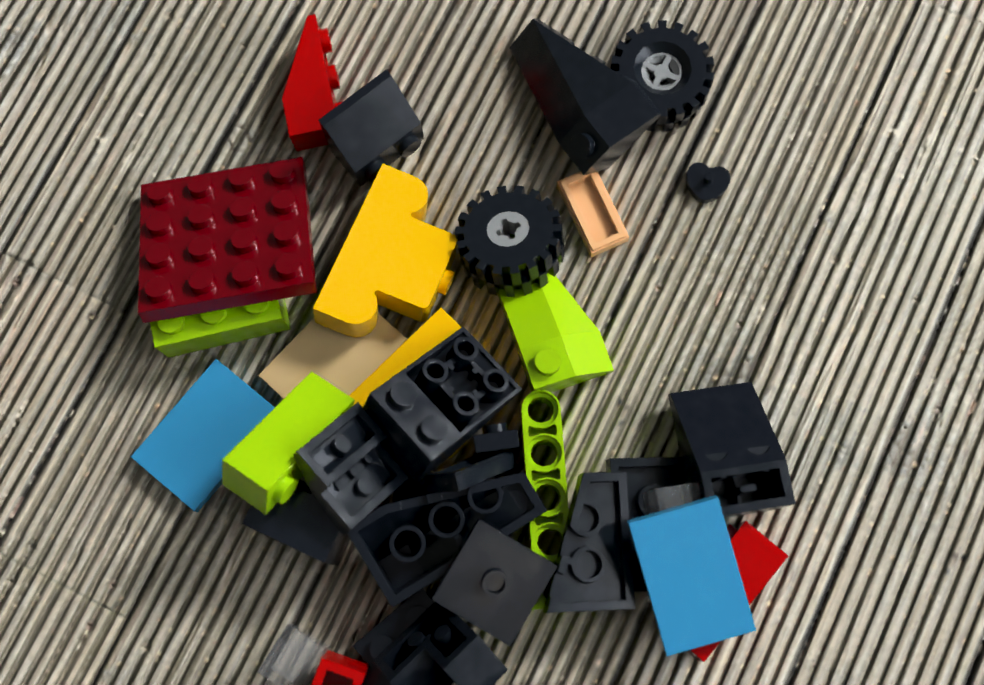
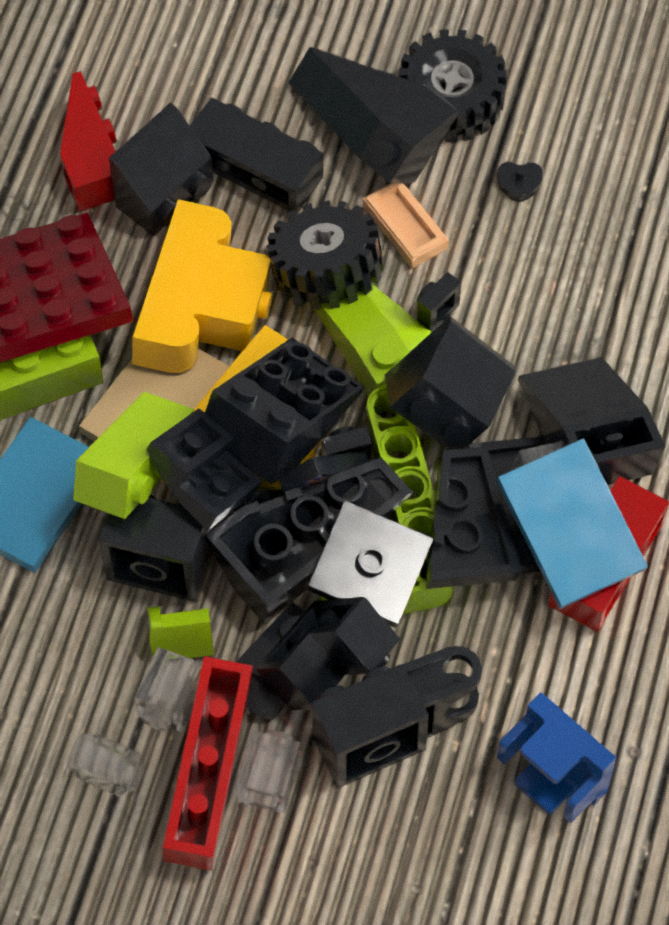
camera: 15 degrees left, 15 degrees down
(310, 606) = (181, 632): none -> lime tile
(465, 121) = (259, 155): none -> black brick
(600, 407) = (450, 385): none -> black slope
(607, 301) = (438, 301): none -> black plate

